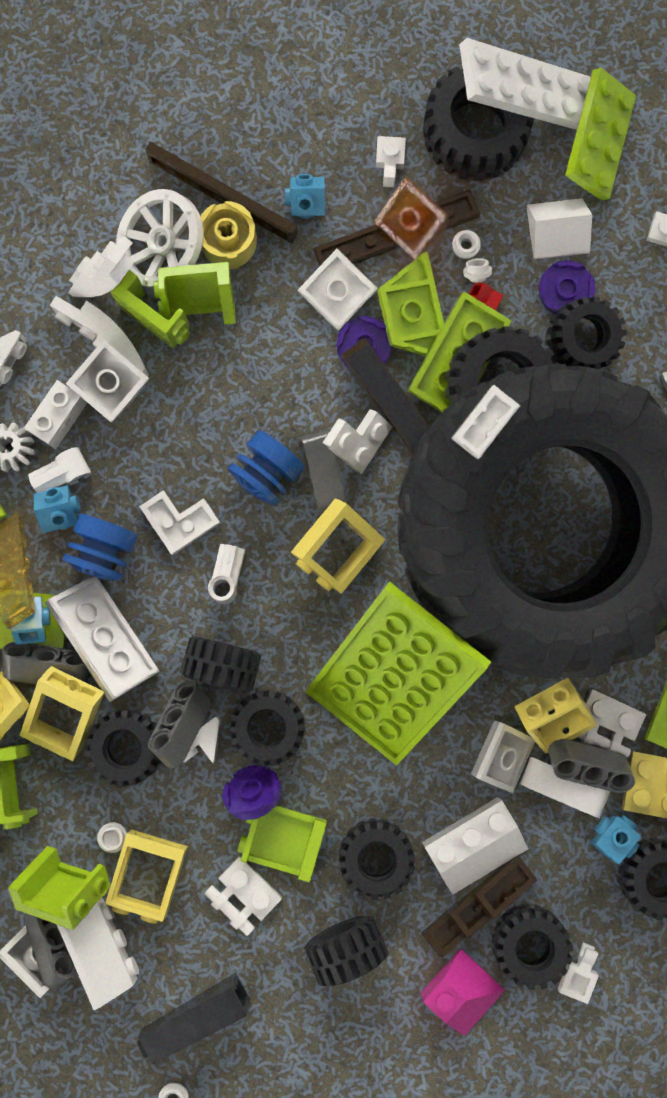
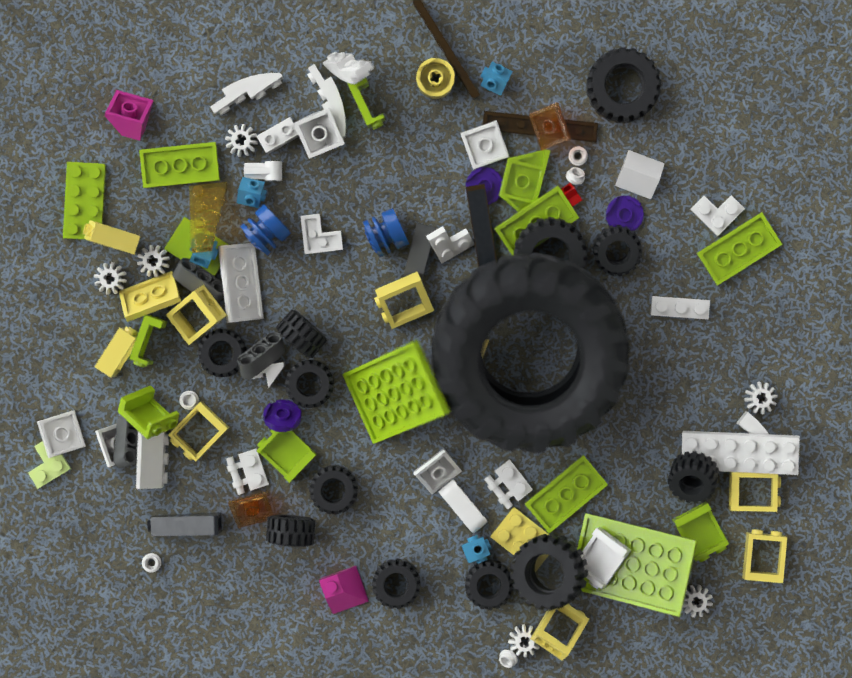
camera: 25 degrees right, 5 degrees up
(162, 239) = (391, 59): white wheel -> none
(196, 290) = (398, 104): lime panel -> none
(226, 571) = (332, 280): white piece -> none
(274, 946) = (251, 508): none -> clear orange slope
(390, 157) = (561, 76): white plate -> none
(475, 845) = (394, 512): white slope -> none
(479, 906) = (378, 547): dark brown slope -> none
(485, 422) = (510, 283): white plate -> none
(522, 84) = (660, 85): white plate -> none
(569, 713) = (486, 462): light yellow window -> none
(580, 979) = (414, 616): white plate -> none
(591, 766) = (483, 501): dark grey beam -> none
(600, 134) = (694, 131): lime plate -> none

